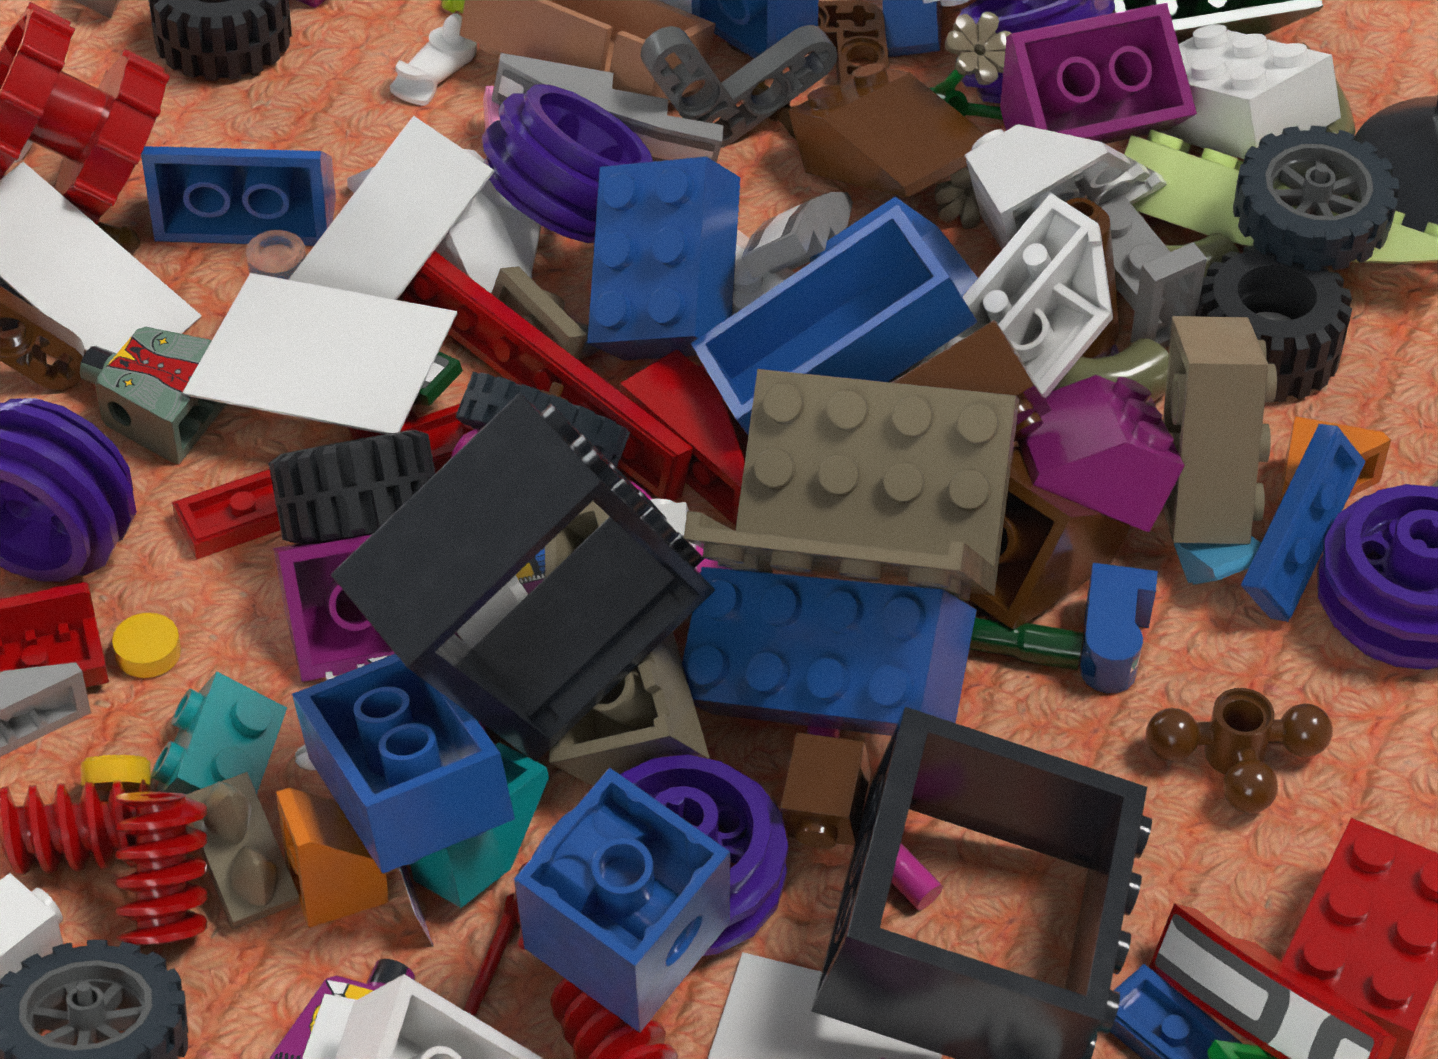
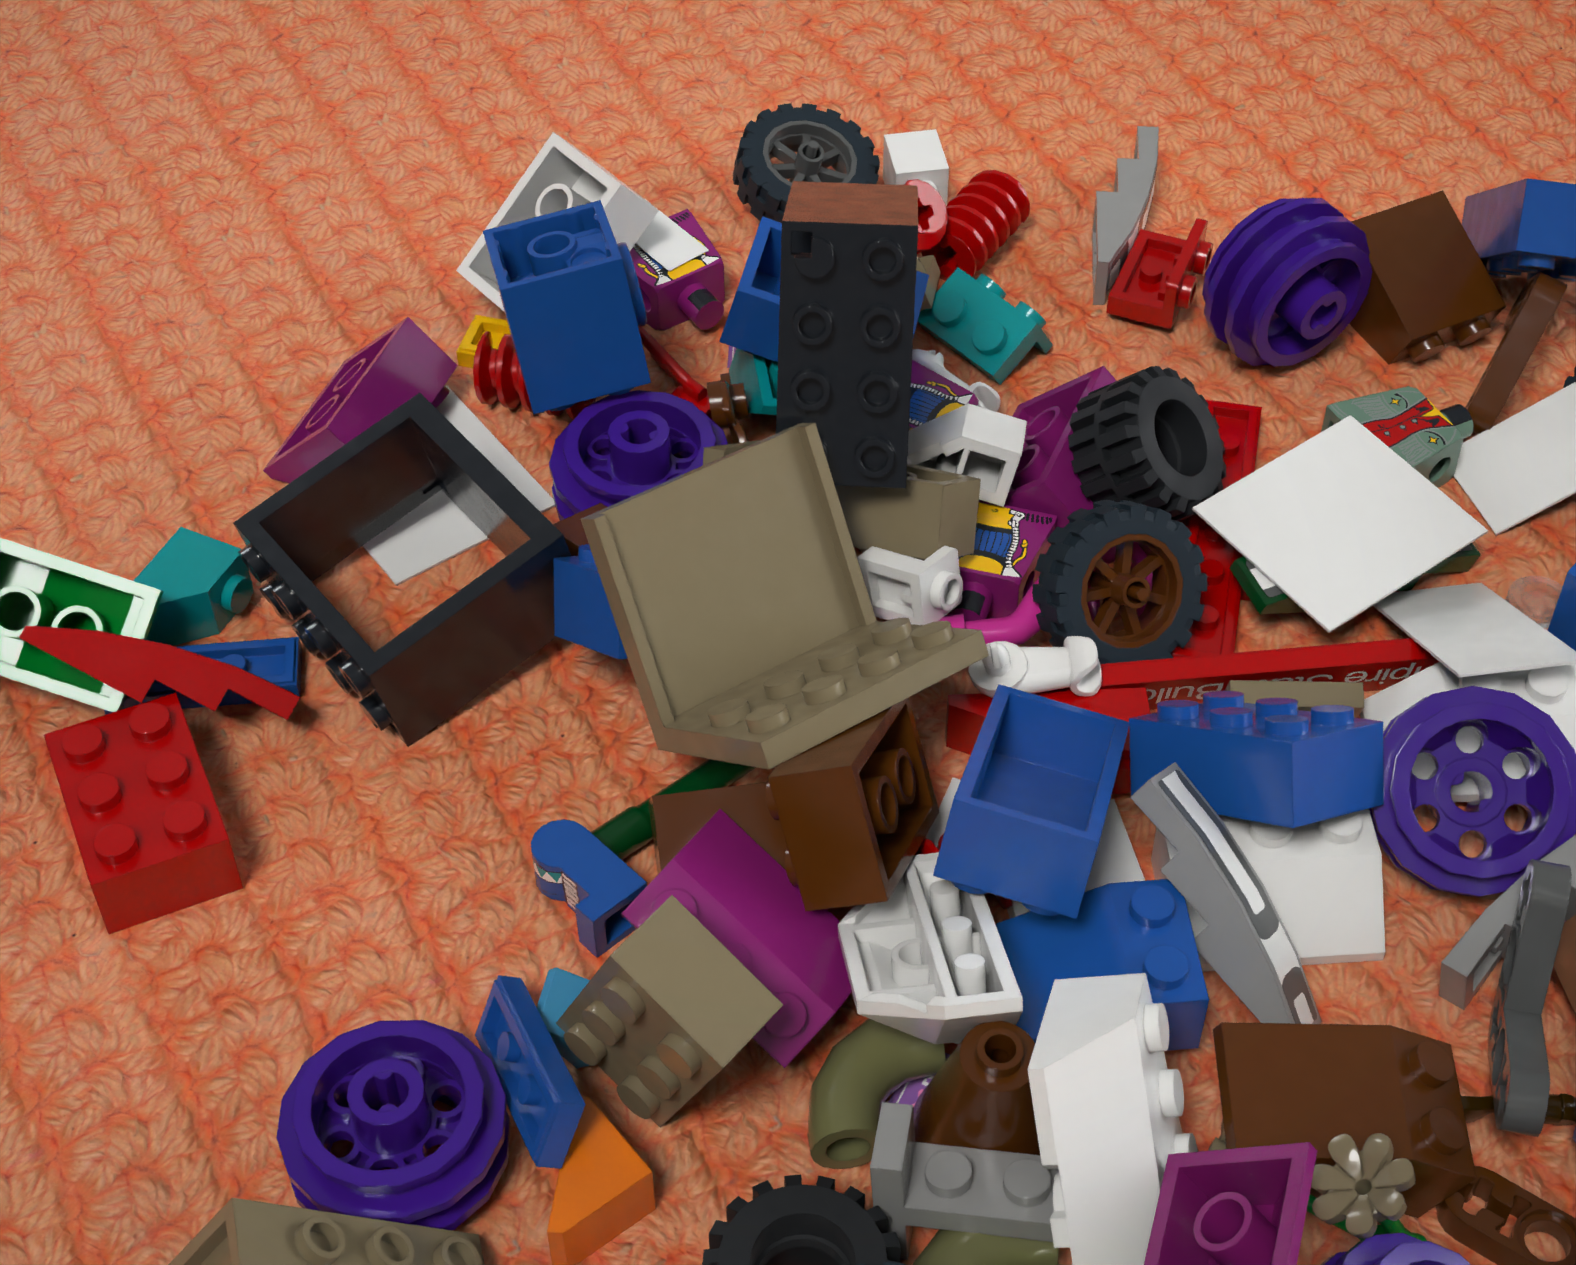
camera: 130 degrees right, 0 degrees up
(107, 768) = (1006, 263): yellow tile -> none
(146, 645) = (1125, 342): yellow tile -> none
(545, 812) = (728, 406): none -> reddish brown plate
(691, 449) = (1039, 667): none -> white piece
(1238, 741) = (397, 876): reddish brown piece -> none

